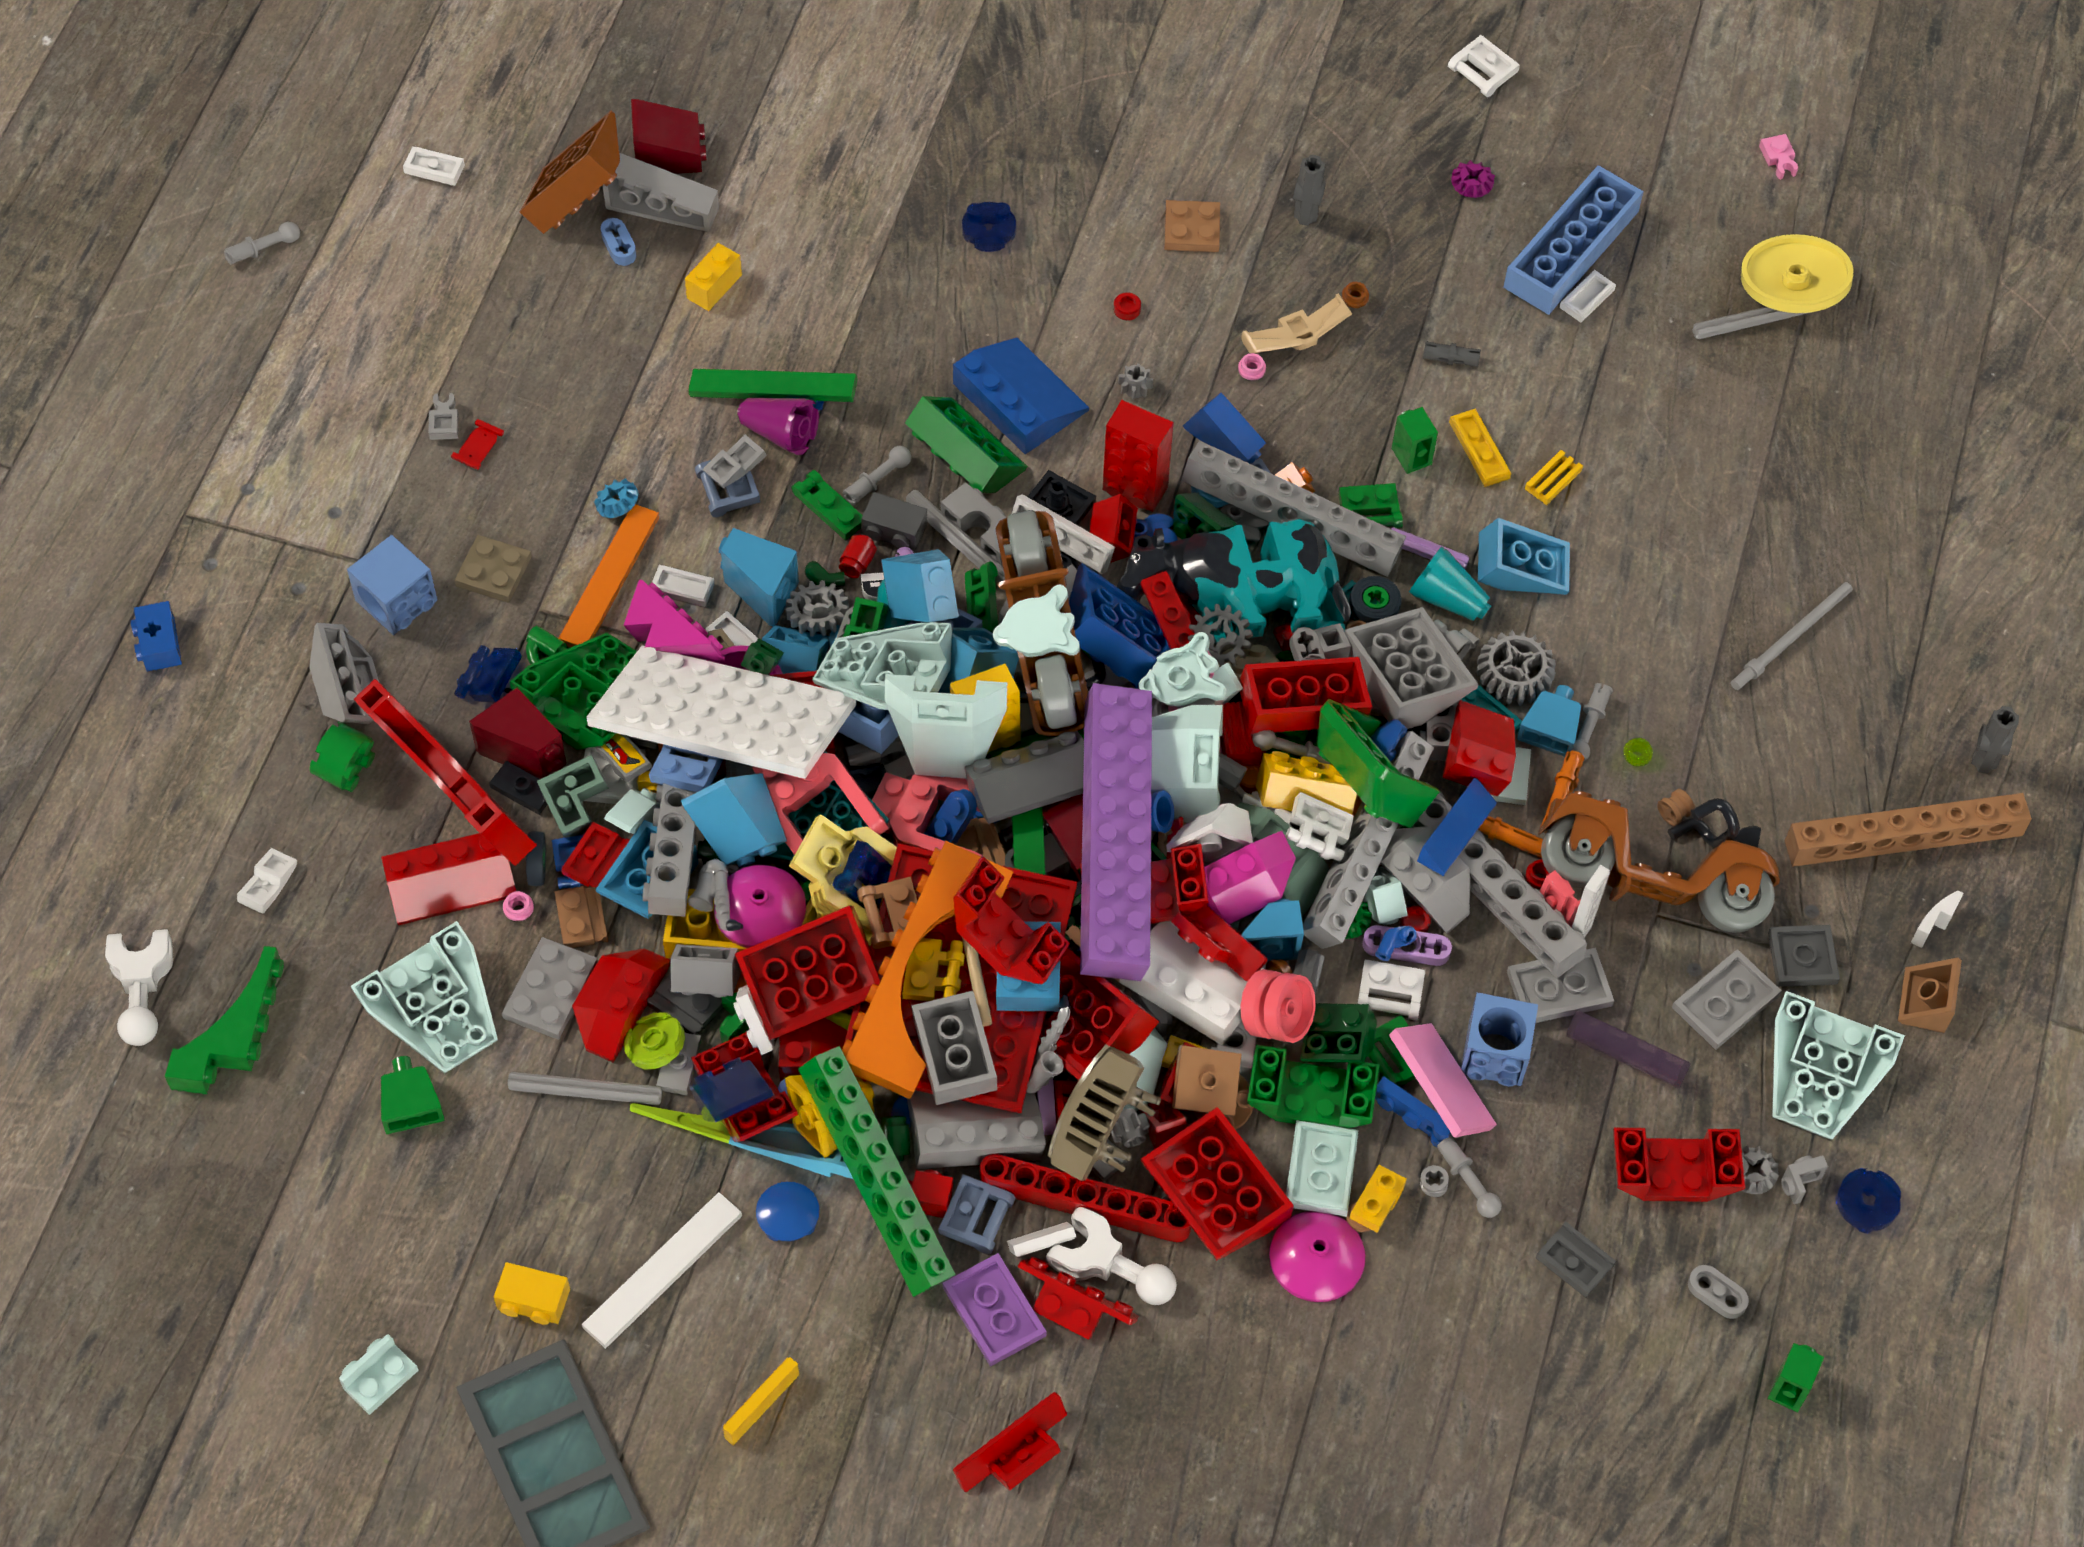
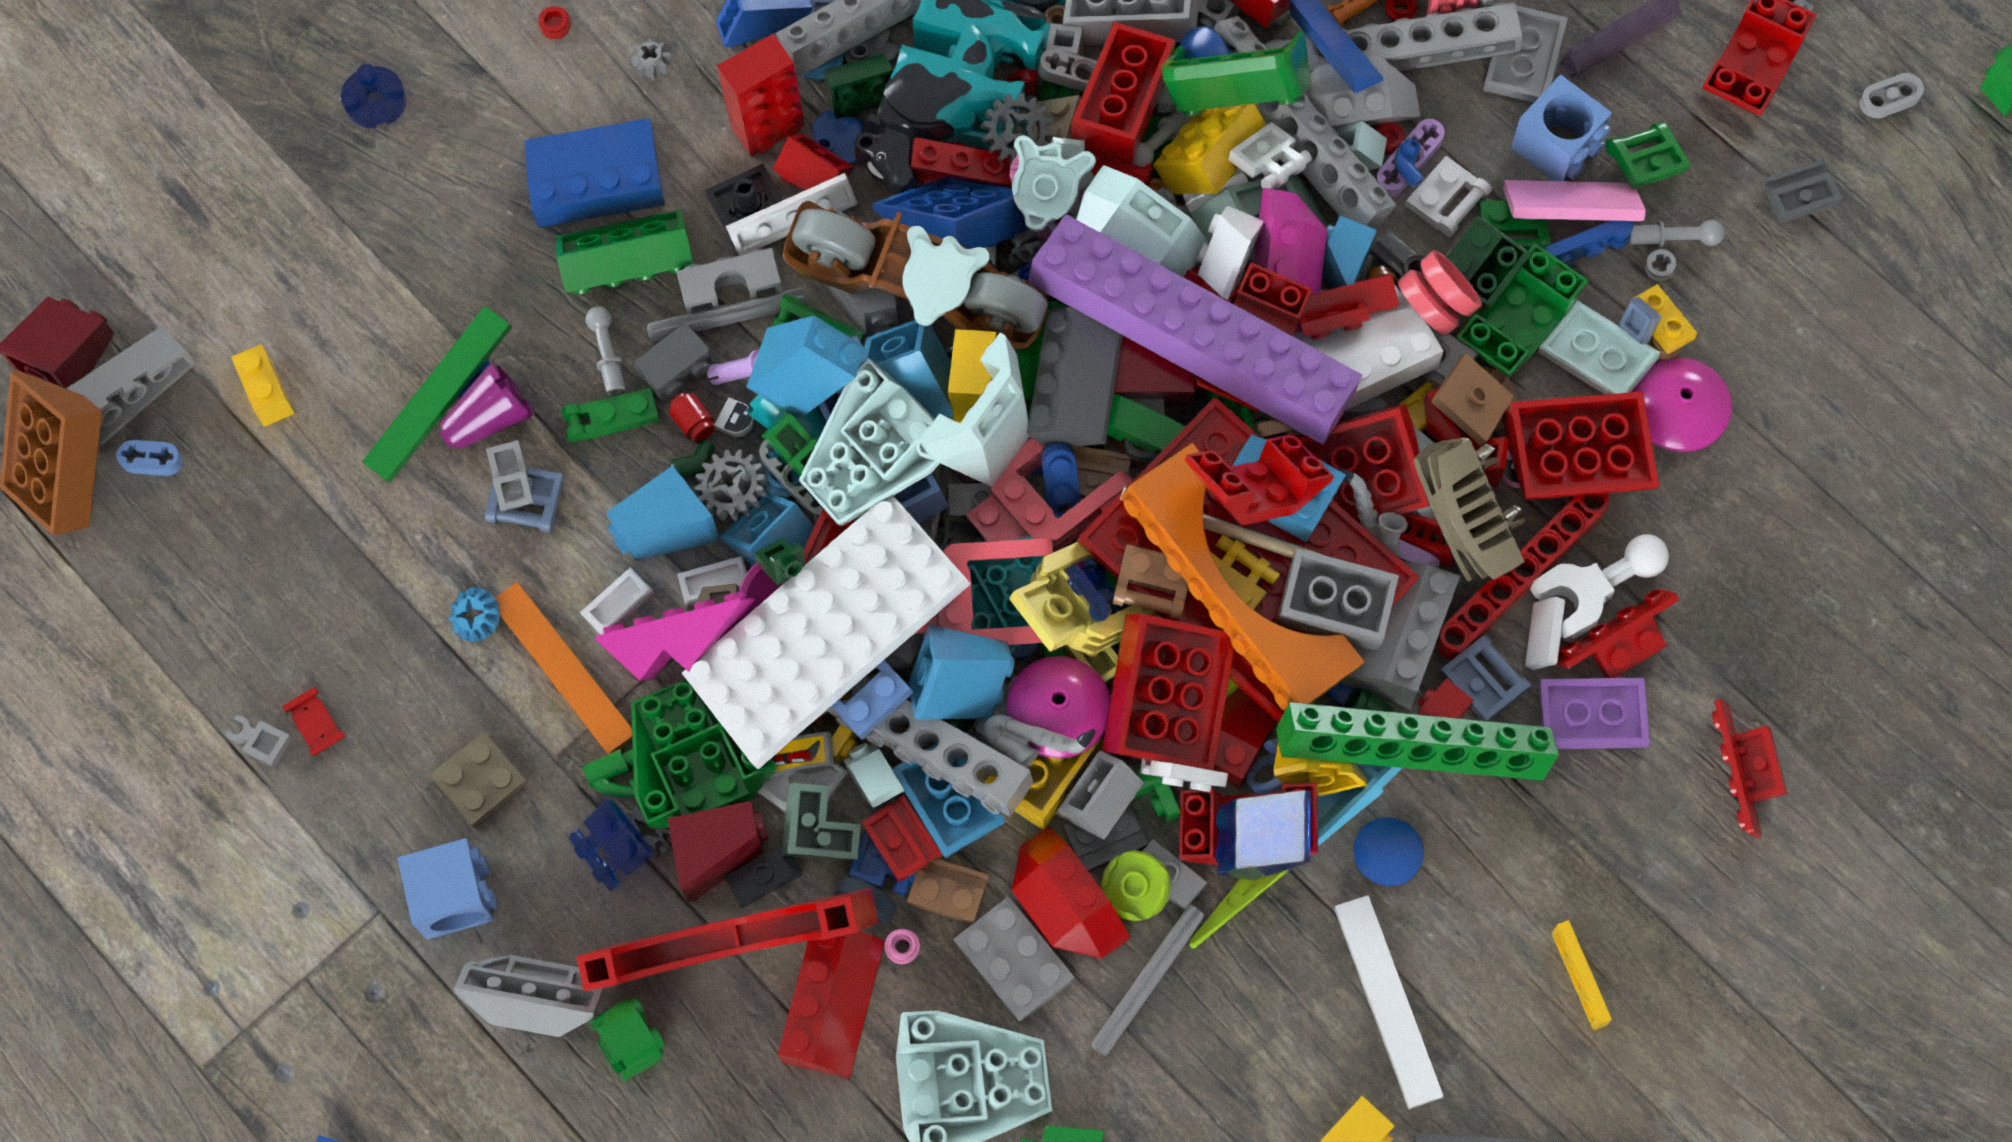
camera: 55 degrees left, 10 degrees up
(1362, 1179) = (1640, 320): none -> sand blue tile
(1521, 1127) = (1650, 163): none -> green plate

